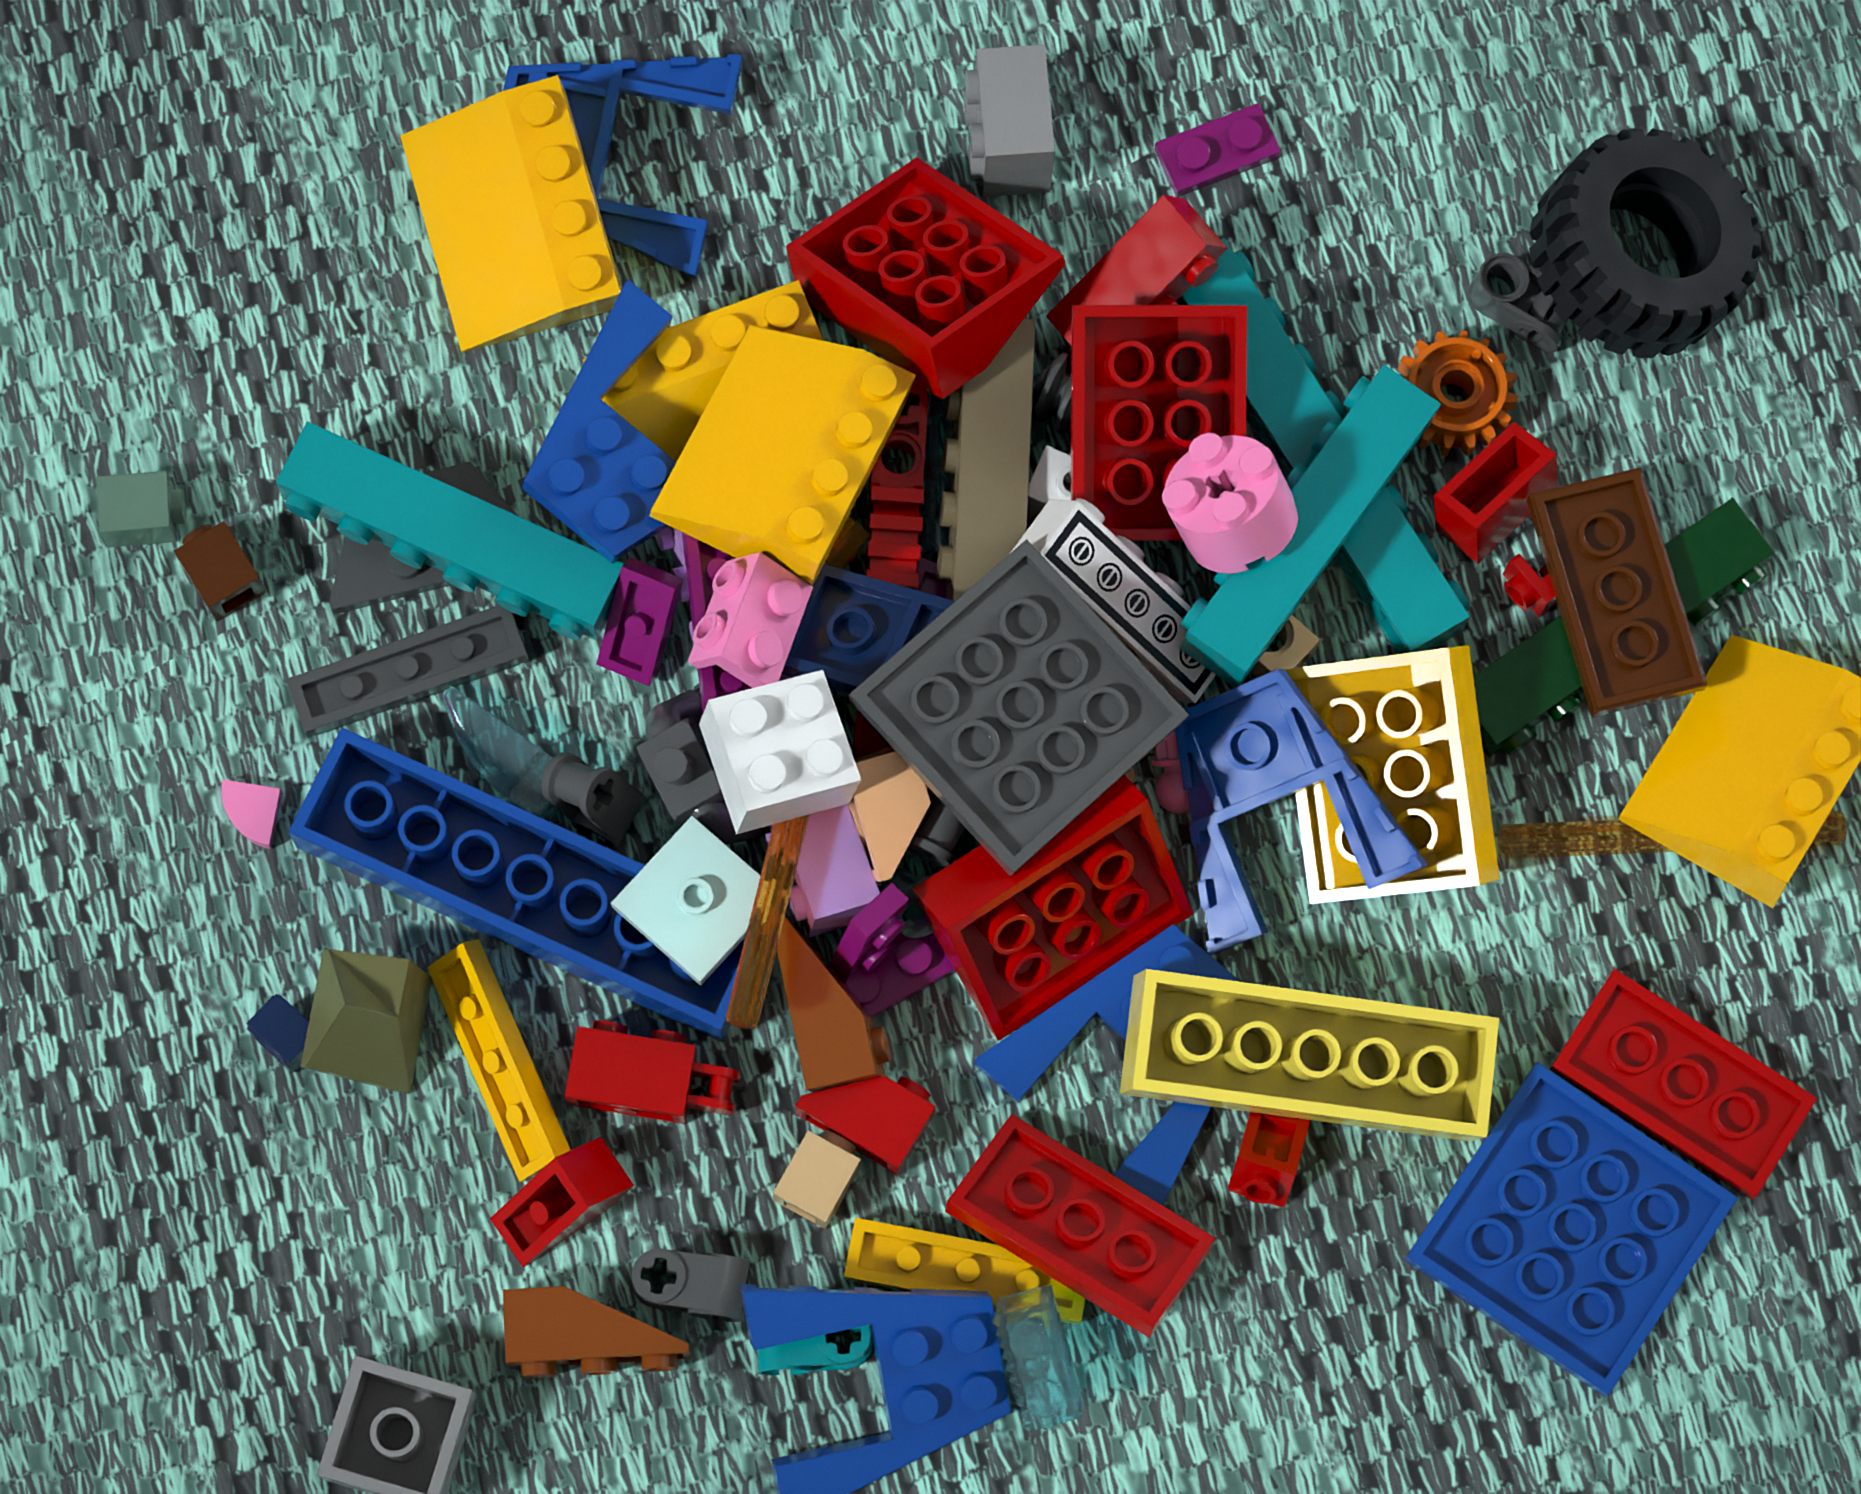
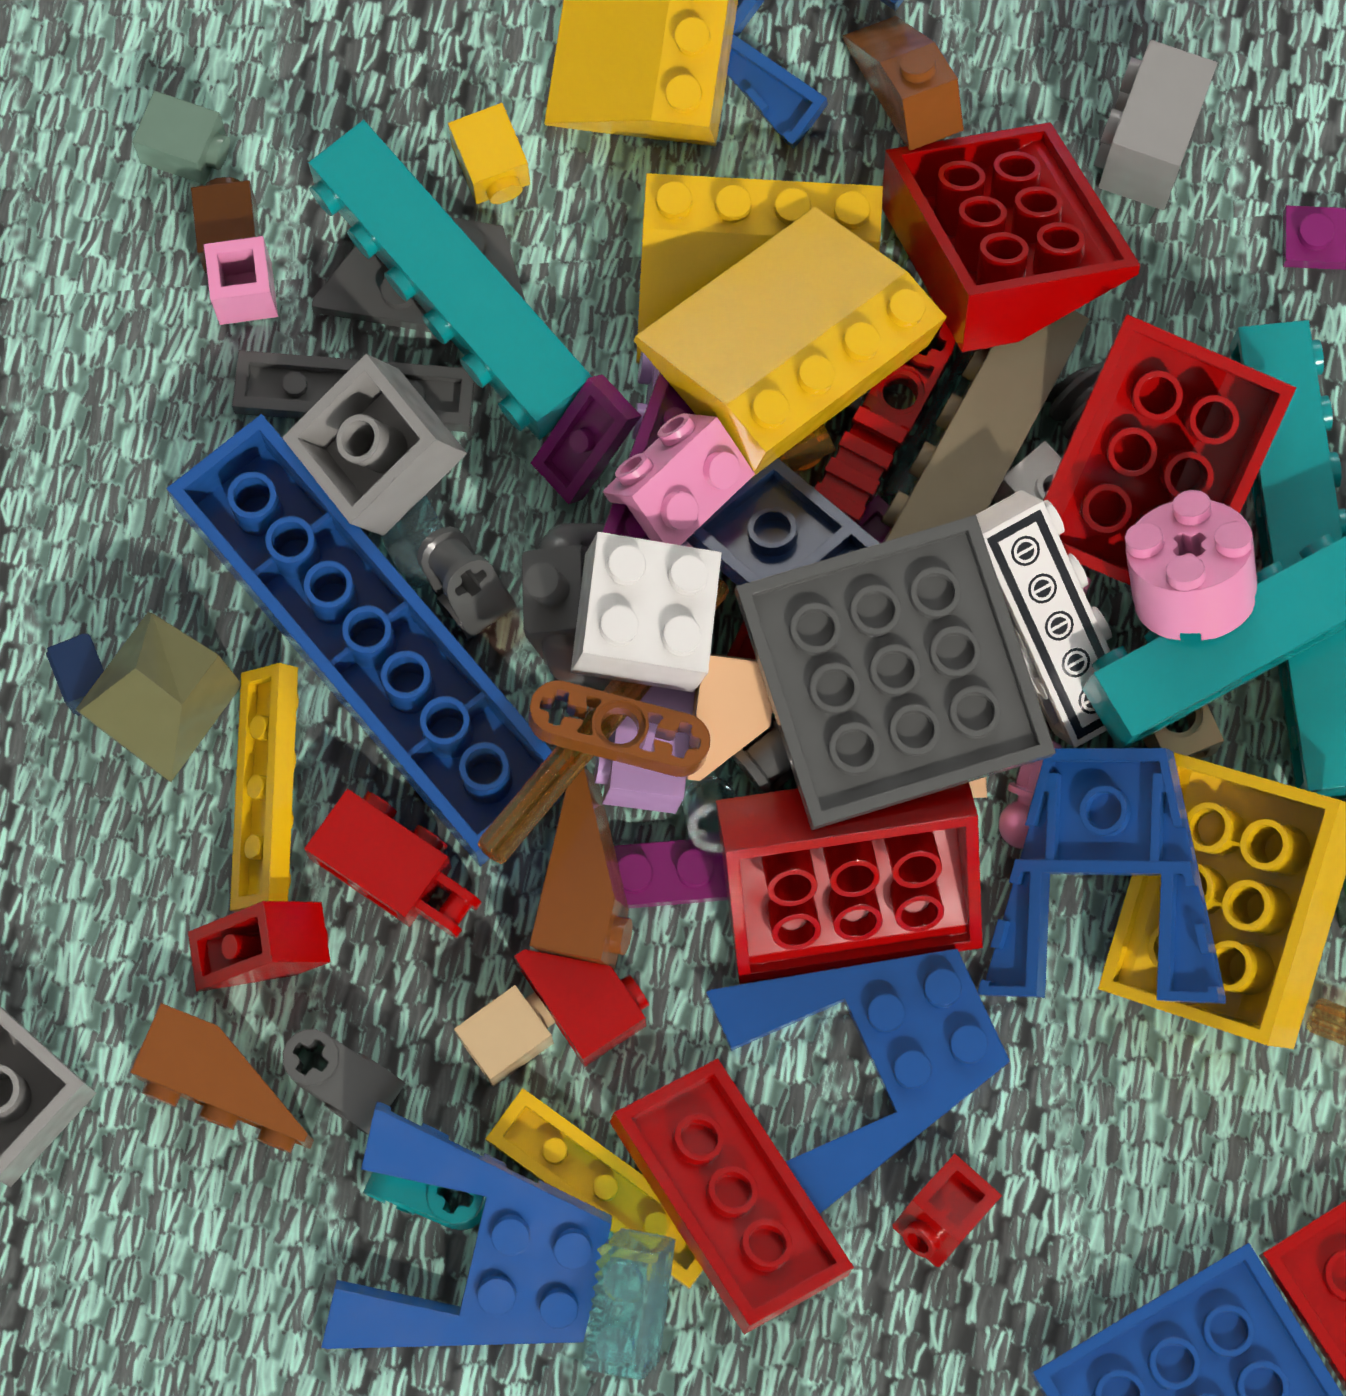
camera: 30 degrees right, 0 degrees up
(252, 810) = (153, 457): bright pink tile -> none
(259, 614) = (241, 280): none -> bright pink brick
(428, 402) = (490, 155): none -> yellow brick
(457, 710) = (374, 445): none -> light grey brick
(593, 463) = (606, 269): blue wing -> none
(692, 900) = (489, 721): light aqua plate -> none
(756, 858) = (606, 704): none -> dark orange beam
(774, 173) = (908, 80): none -> dark orange slope
(870, 933) = (658, 824): magenta plate -> none
(1149, 264) = (1228, 311): red brick -> none
(1309, 1055) = (1028, 1135): light yellow brick -> none

